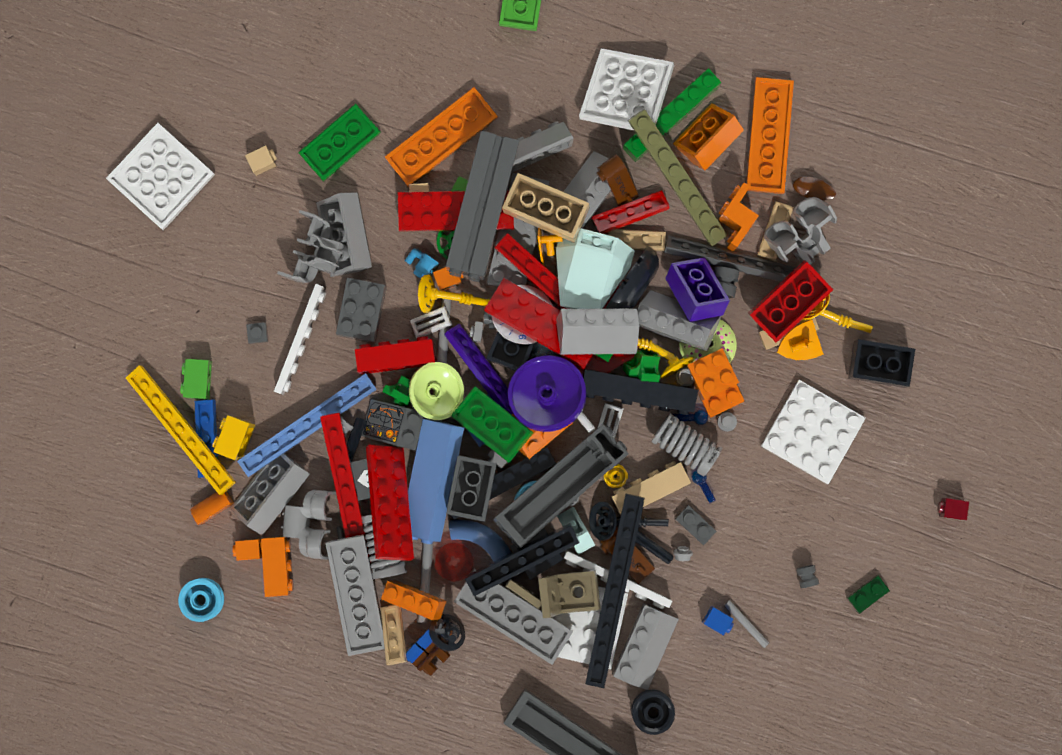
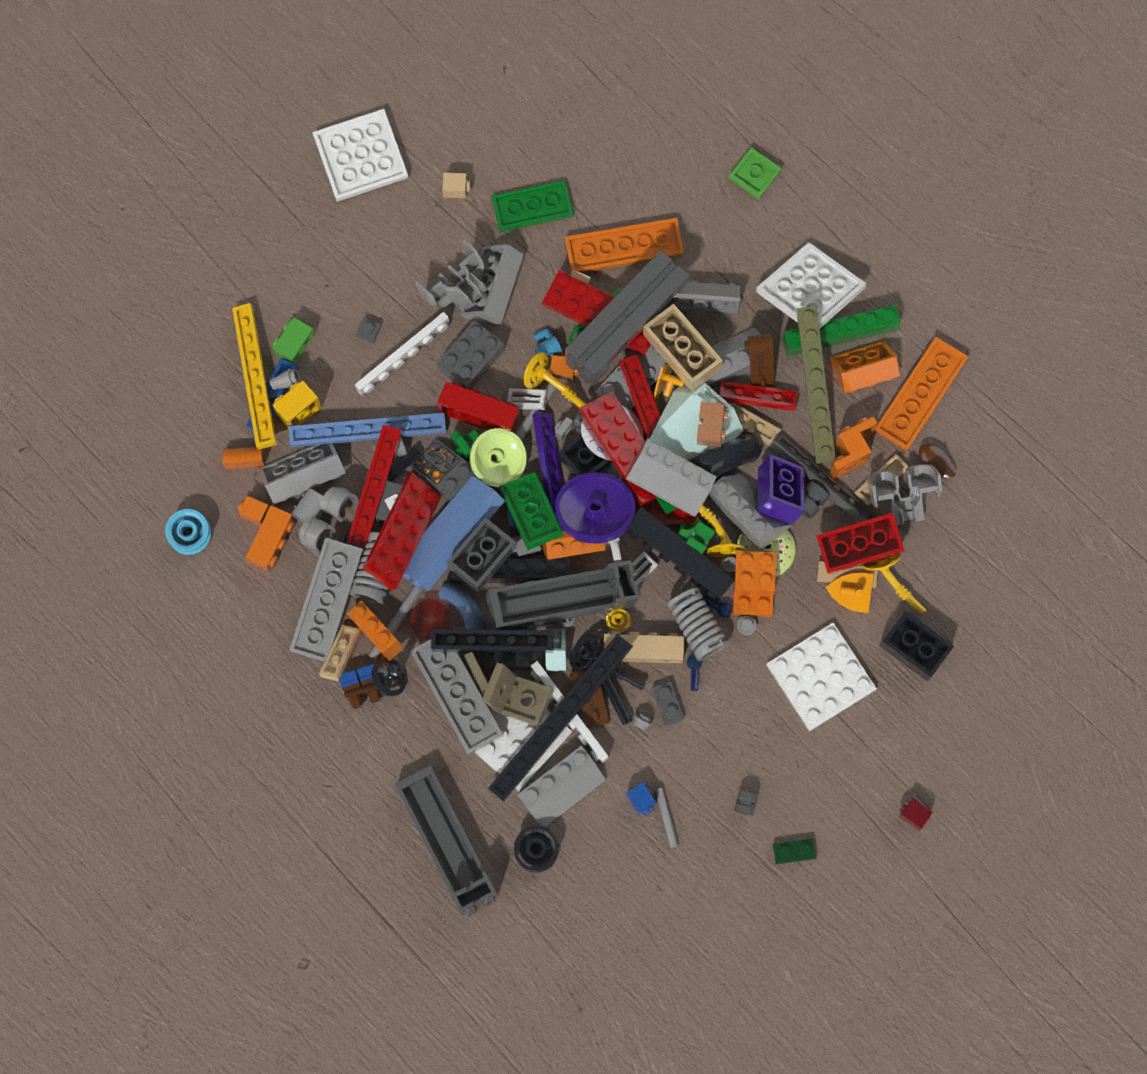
camera: 35 degrees right, 10 degrees down
(211, 419) = (285, 379): none -> light grey cone
(611, 270) = (711, 430): none -> nougat brick

